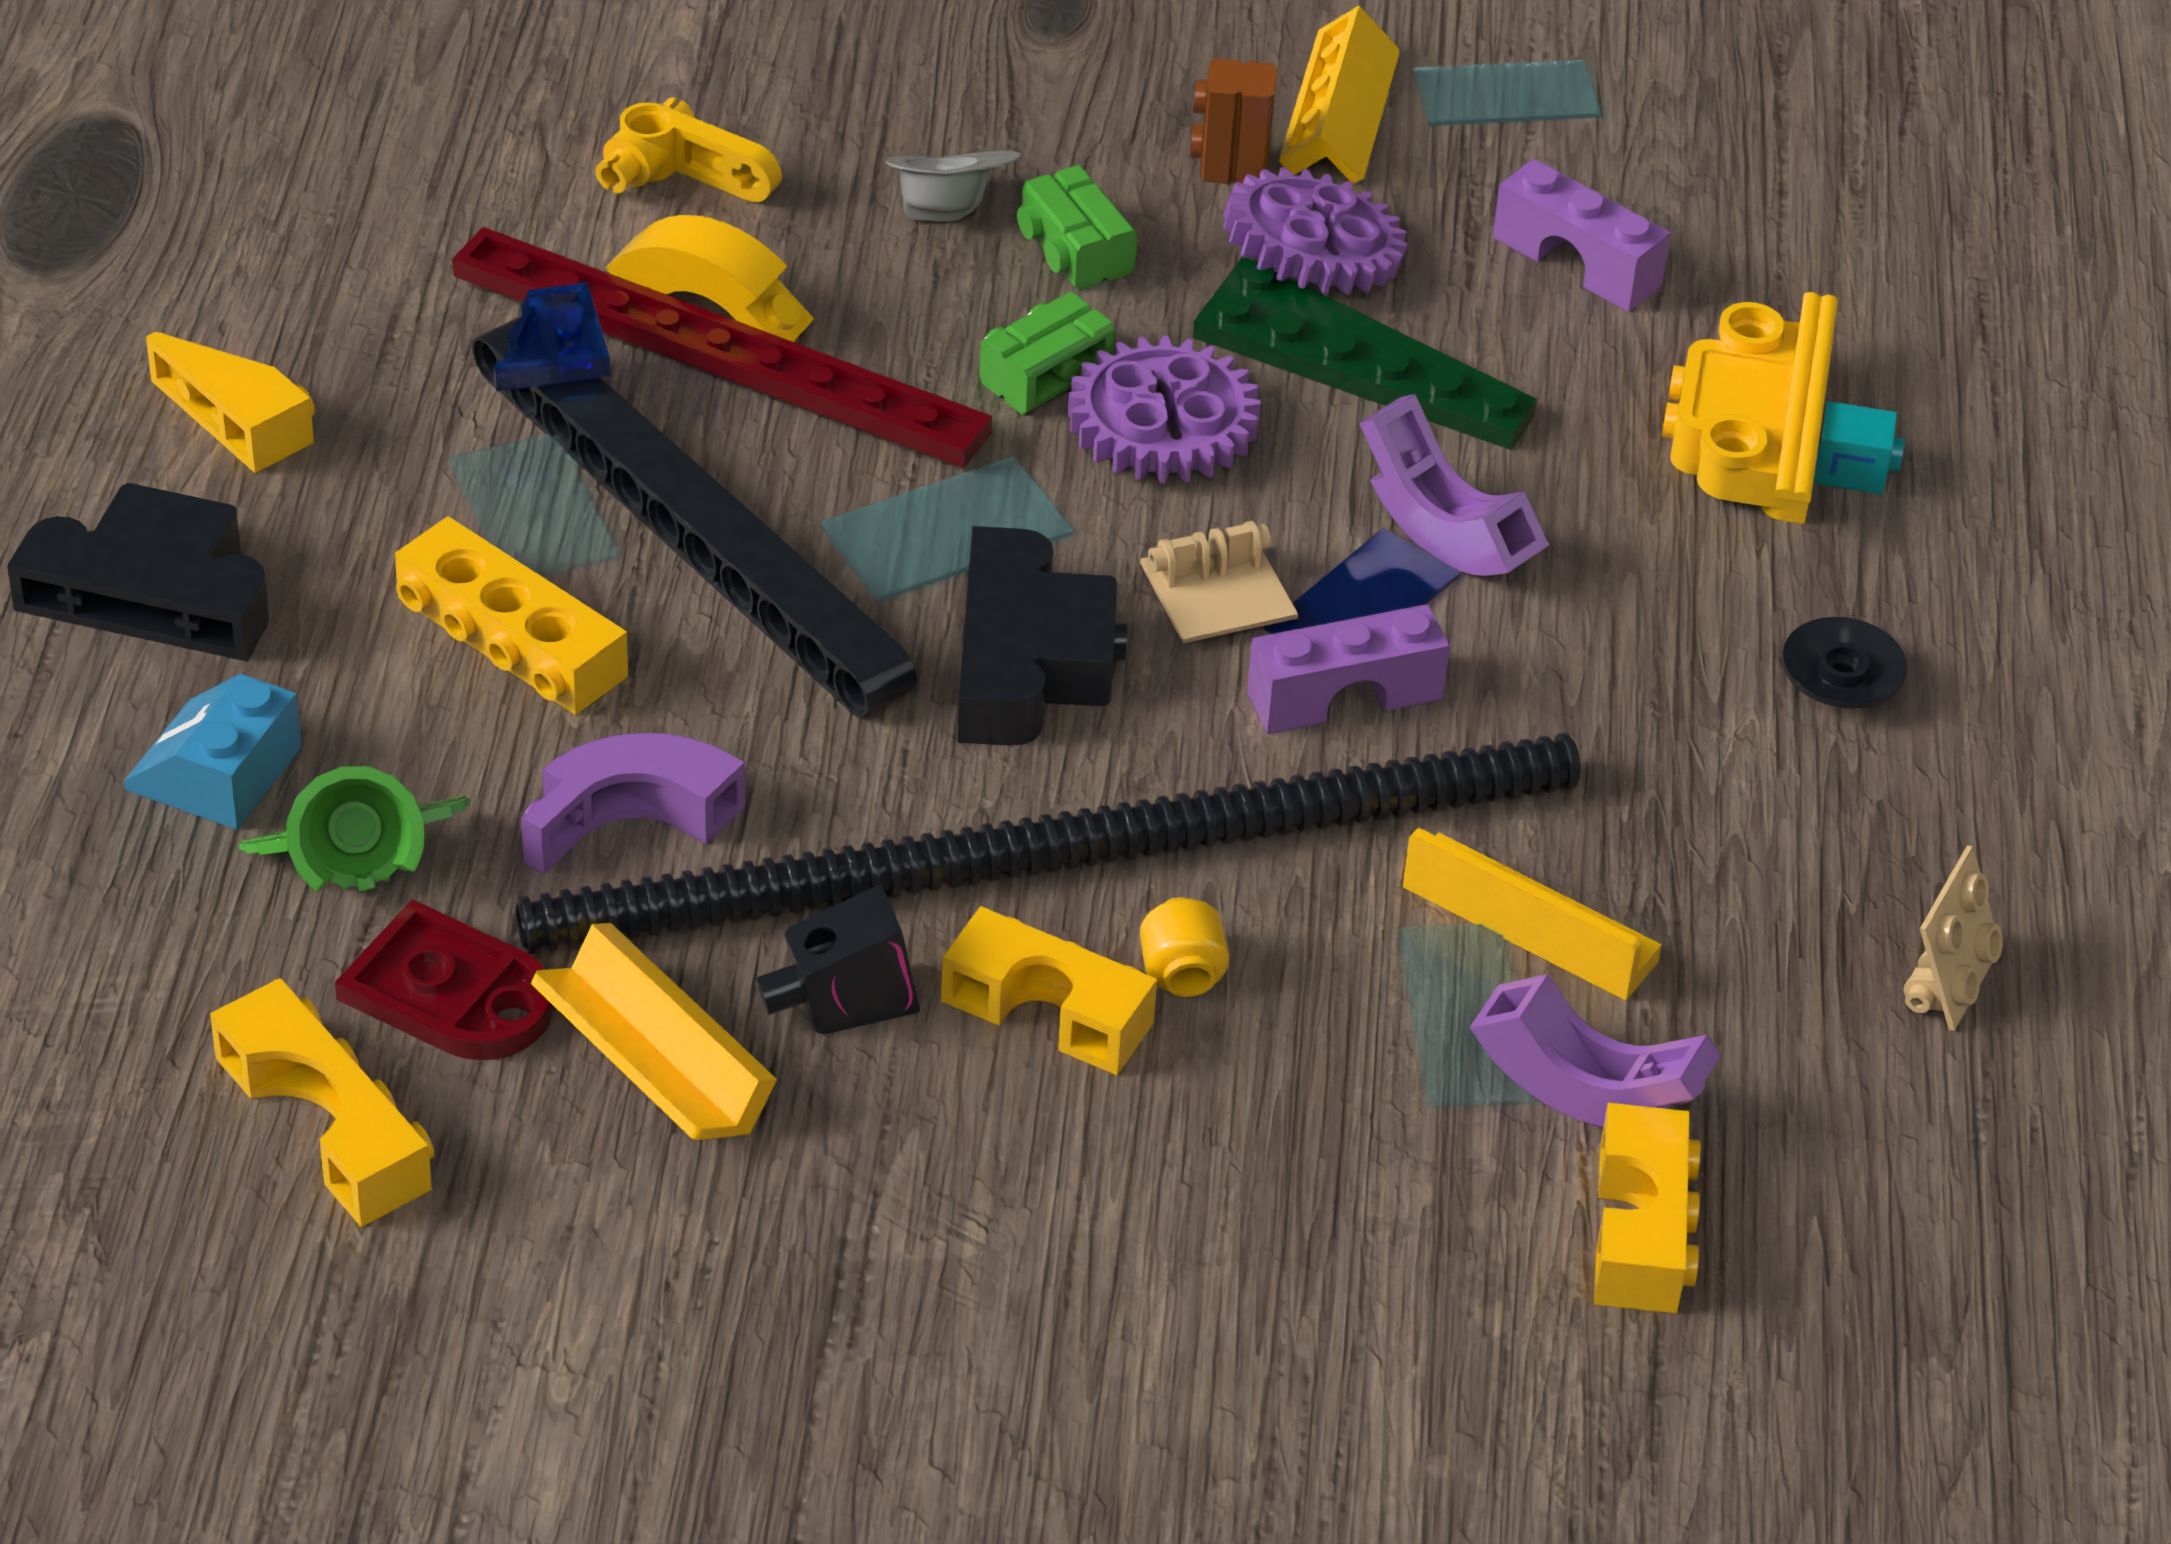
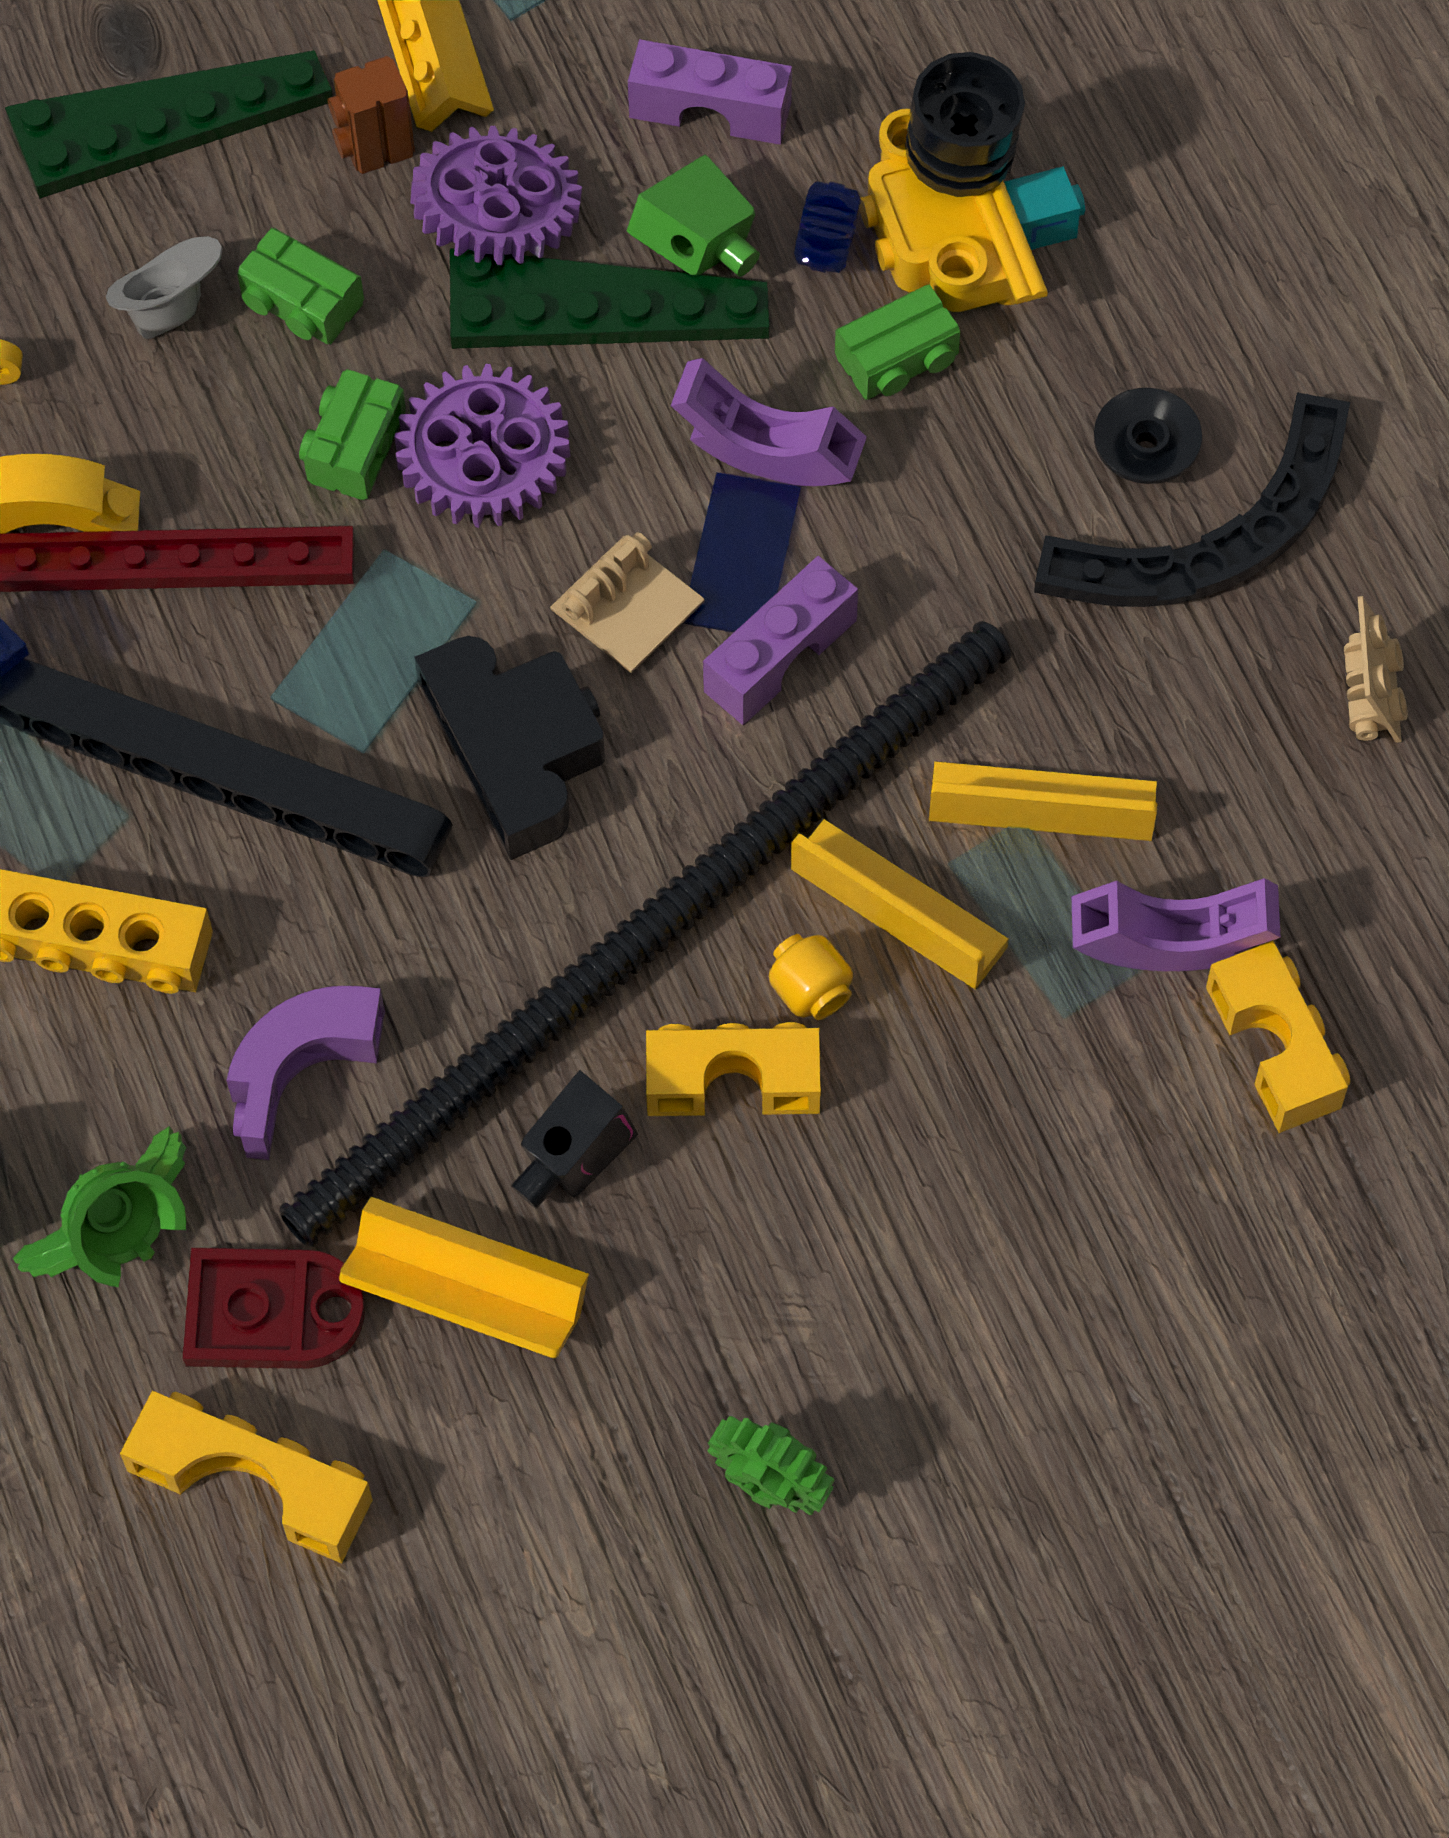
camera: 25 degrees left, 20 degrees up
(839, 1314) = (770, 1465): none -> bright green gear
(1011, 62) = (132, 124): none -> dark green wing
(1319, 932) = (898, 903): none -> yellow panel
(1494, 317) = (696, 220): none -> bright green torso
(1623, 371) = (827, 227): none -> clear blue gear
(1635, 491) = (898, 343): none -> bright green brick
(1804, 315) = (964, 124): none -> black wheel
(1864, 793) = (1224, 555): none -> black plate

